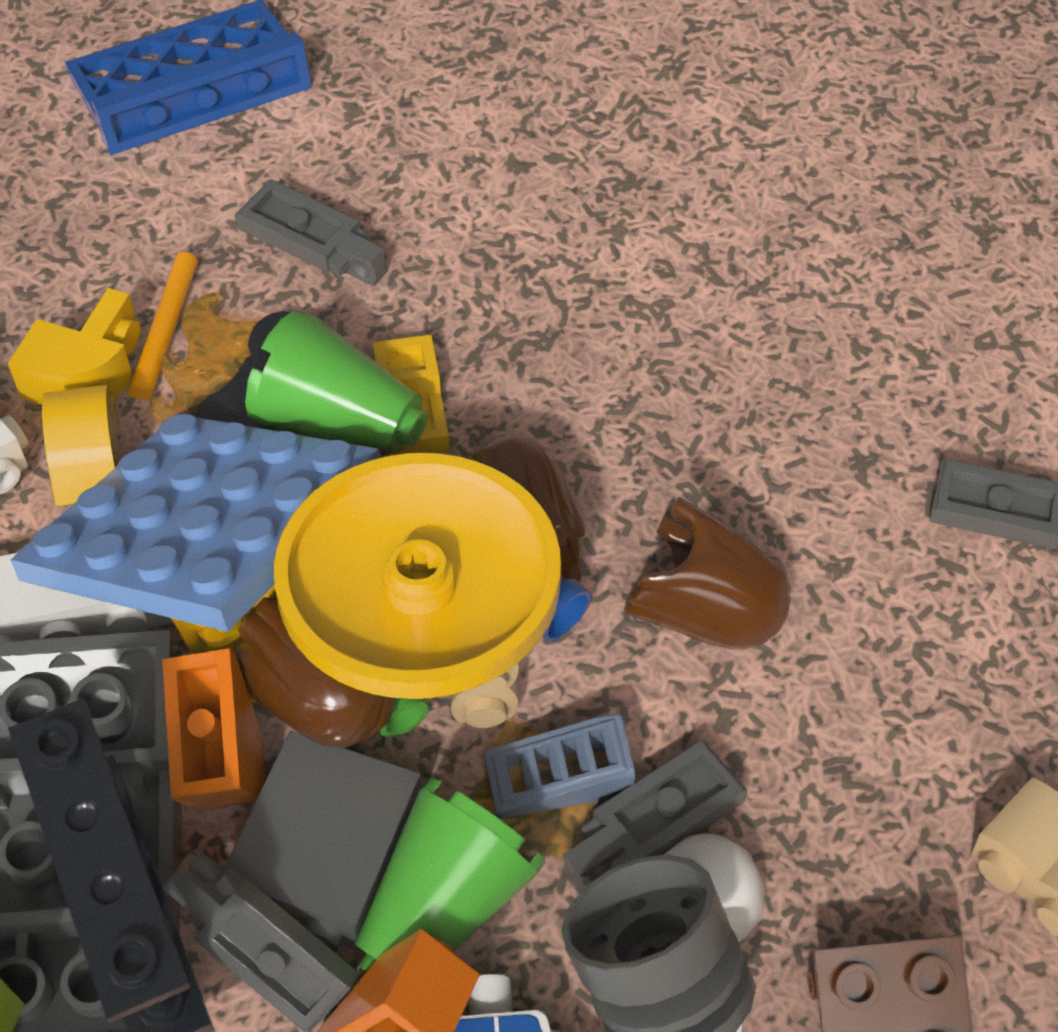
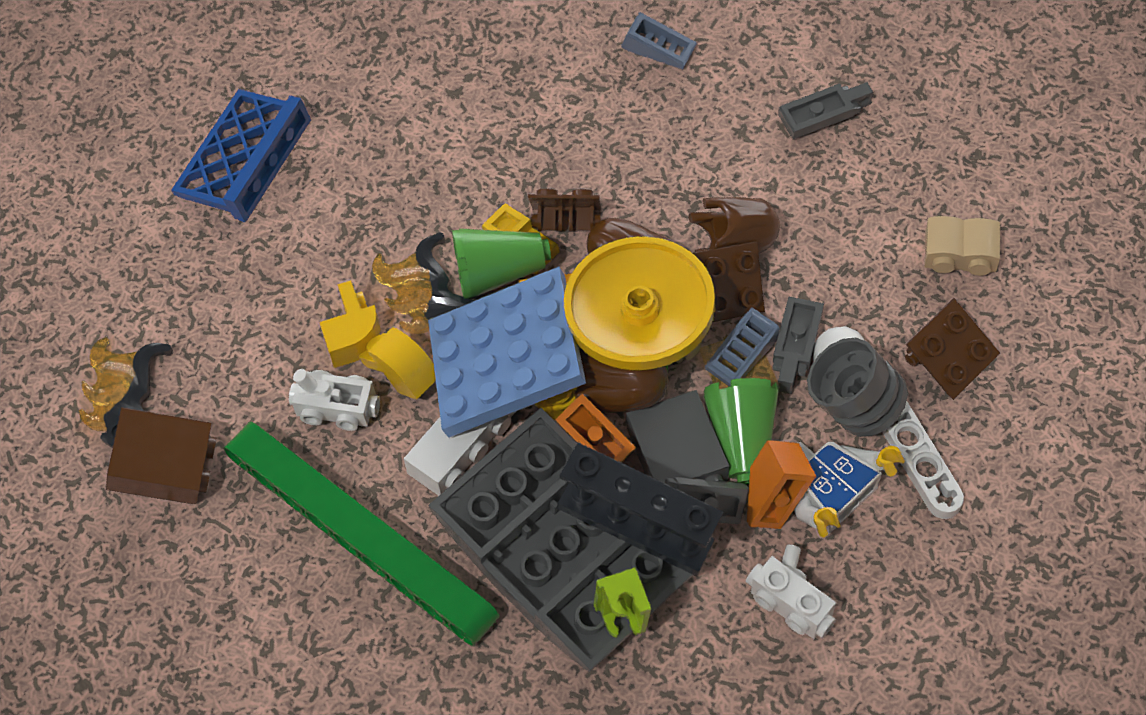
camera: 35 degrees left, 5 degrees up
(163, 326) = (368, 285): light orange bar -> none
(312, 232) = (394, 192): dark grey hinge -> none
(491, 395) = (548, 202): none -> reddish brown hinge
(623, 650) = (735, 279): none -> reddish brown hinge
(816, 249) = (645, 47): none -> sand blue slope

